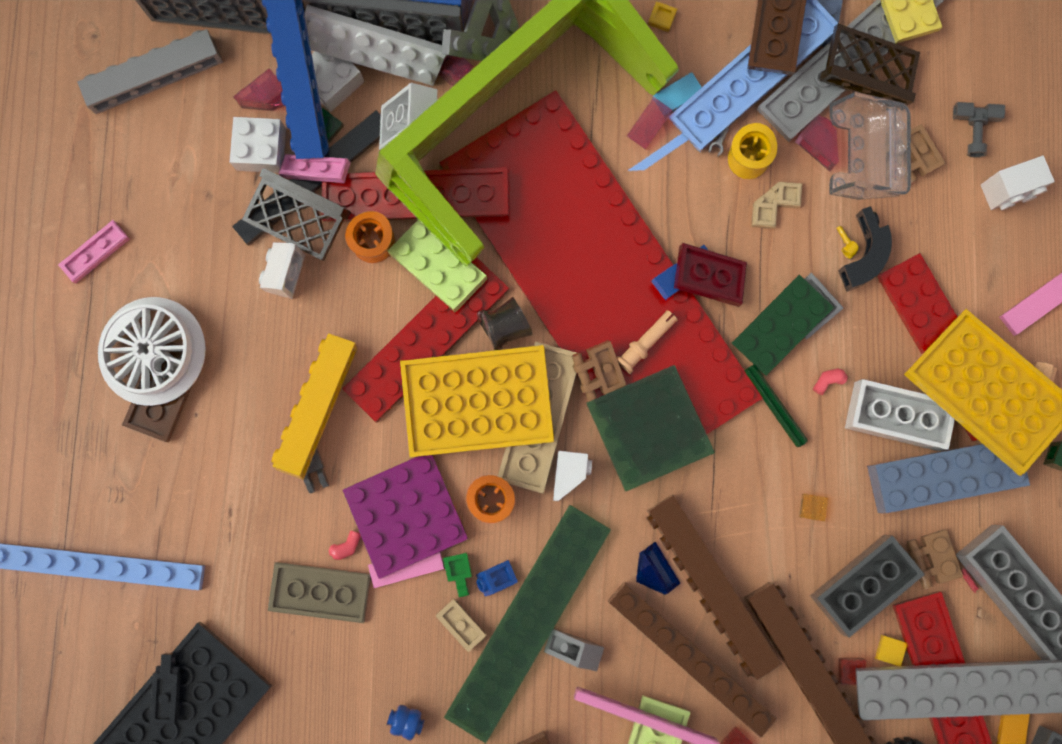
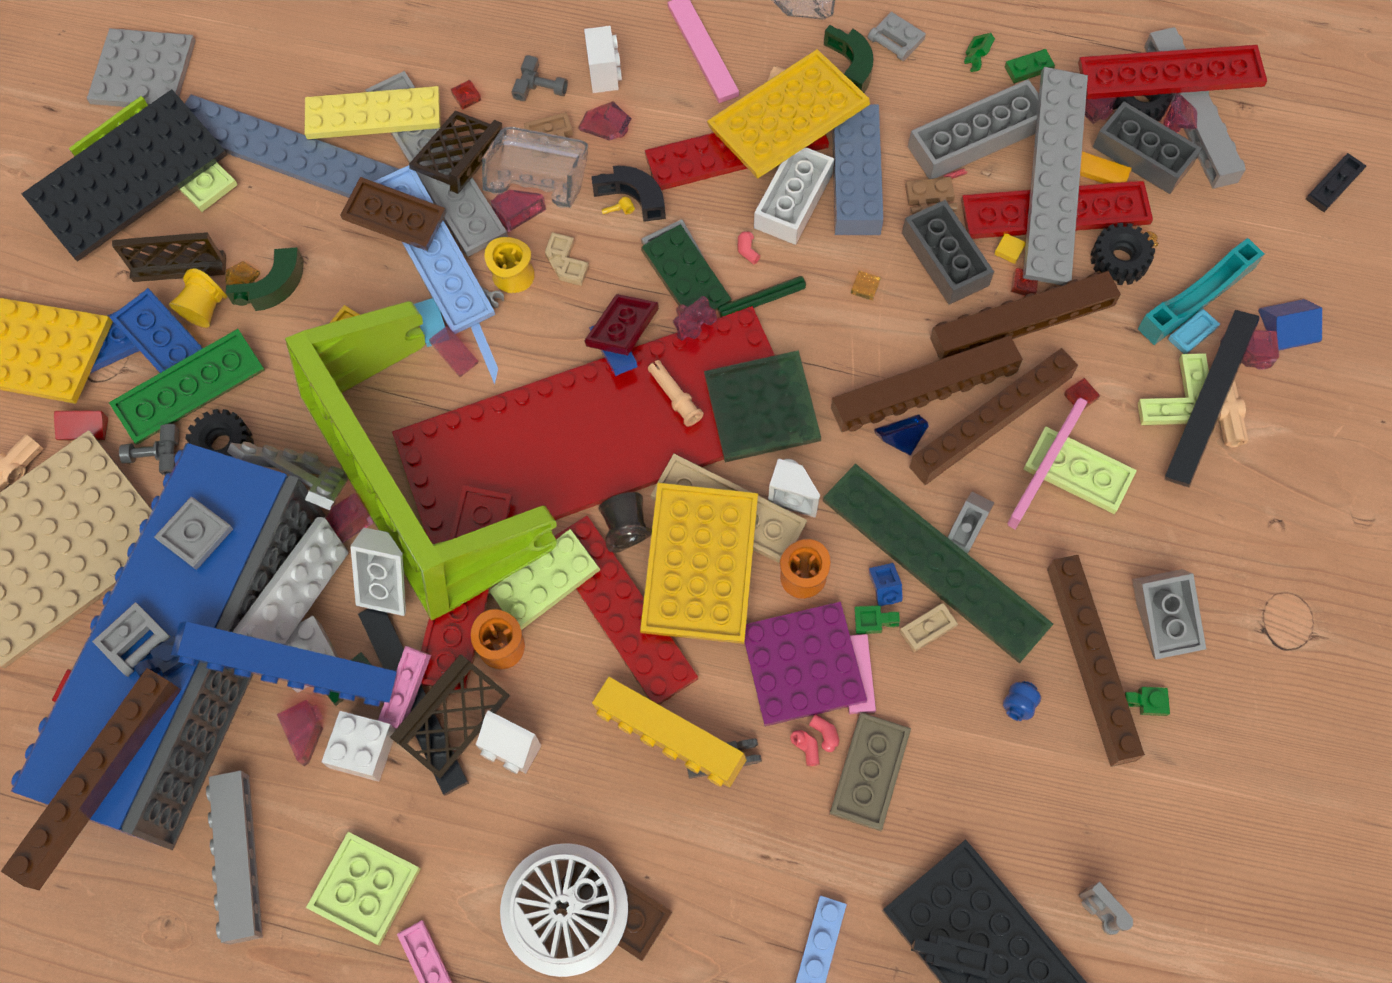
camera: 80 degrees left, 15 degrees down
(144, 182) = (363, 888): none -> yellowish green plate
(332, 532) = (807, 744): none -> coral arm
(605, 366) = (693, 433): medium nougat plate -> none
(730, 340) = (691, 318): none -> clear pink hips
(943, 58) = (466, 94): none -> clear red plate
(943, 205) = (605, 121): none -> clear pink slope

